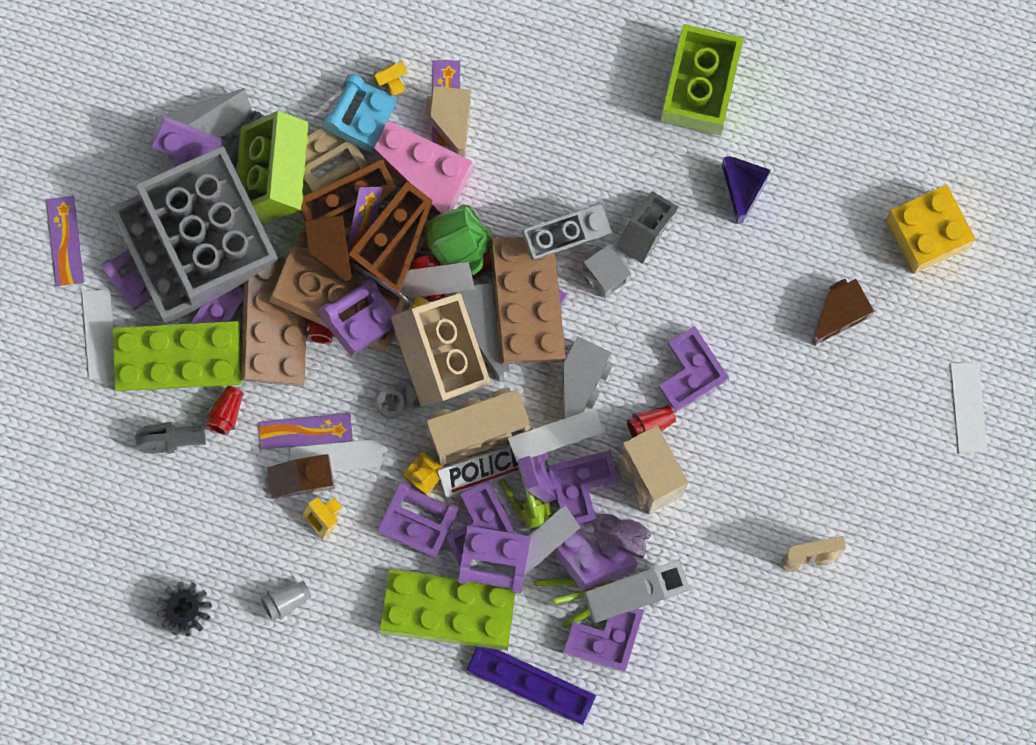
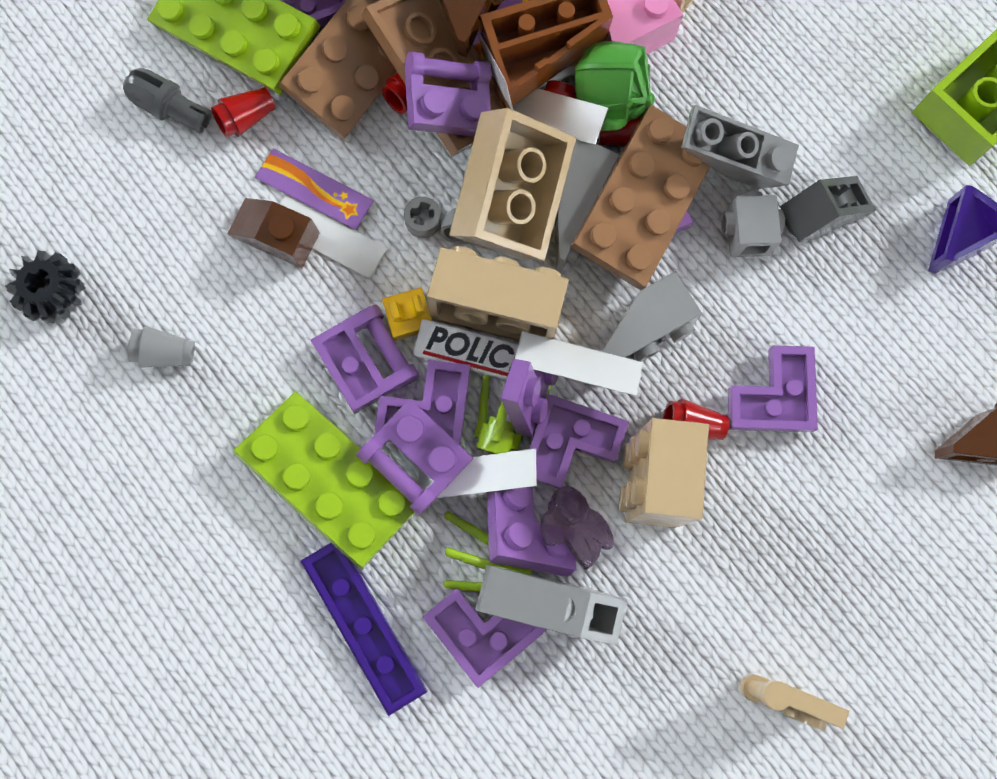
camera: 30 degrees right, 0 degrees up
(322, 516) = (264, 286): yellow tile -> none

